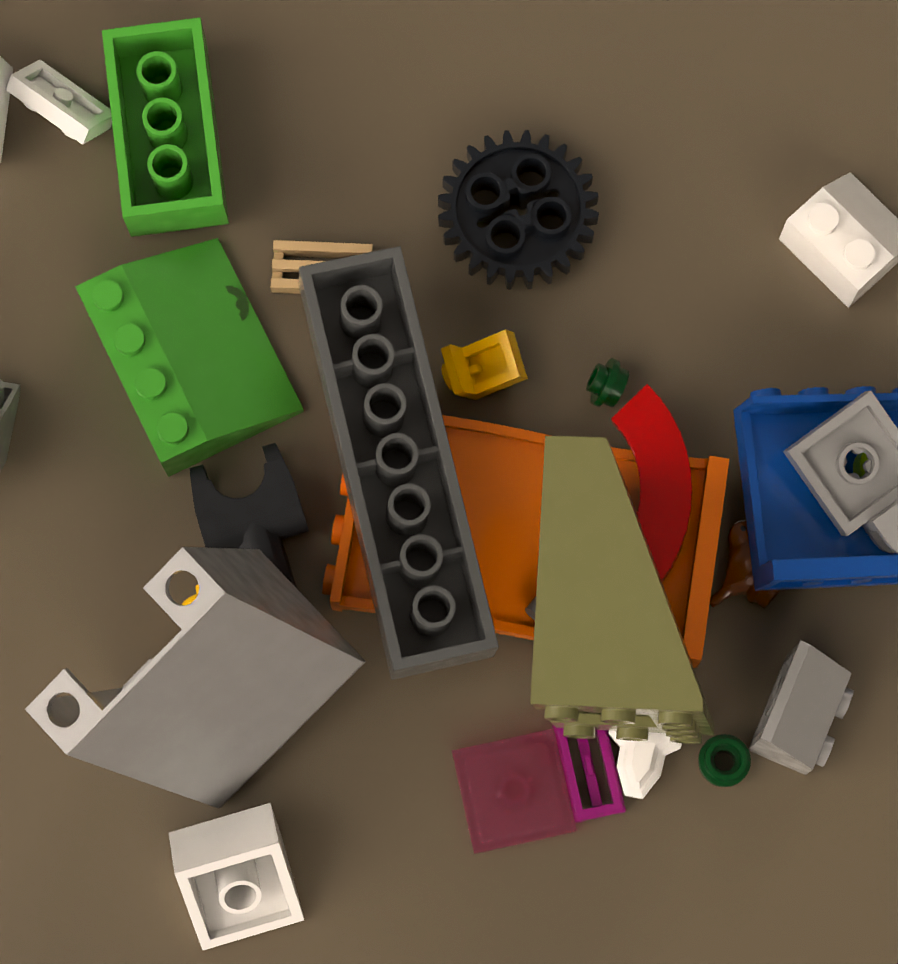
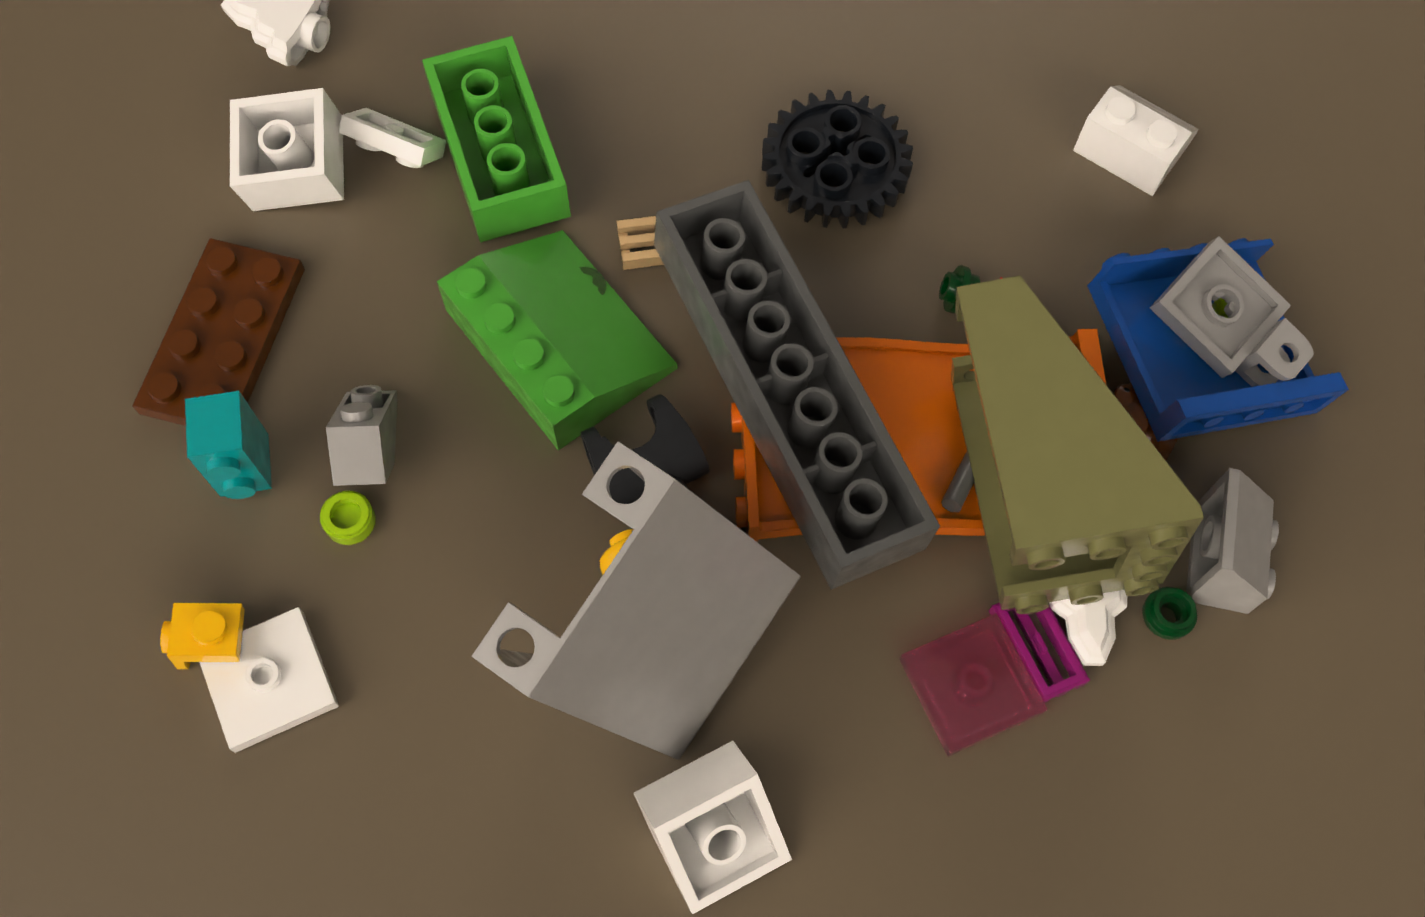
camera: 15 degrees left, 10 degrees down
(483, 366) = (845, 292): yellow bracket -> none

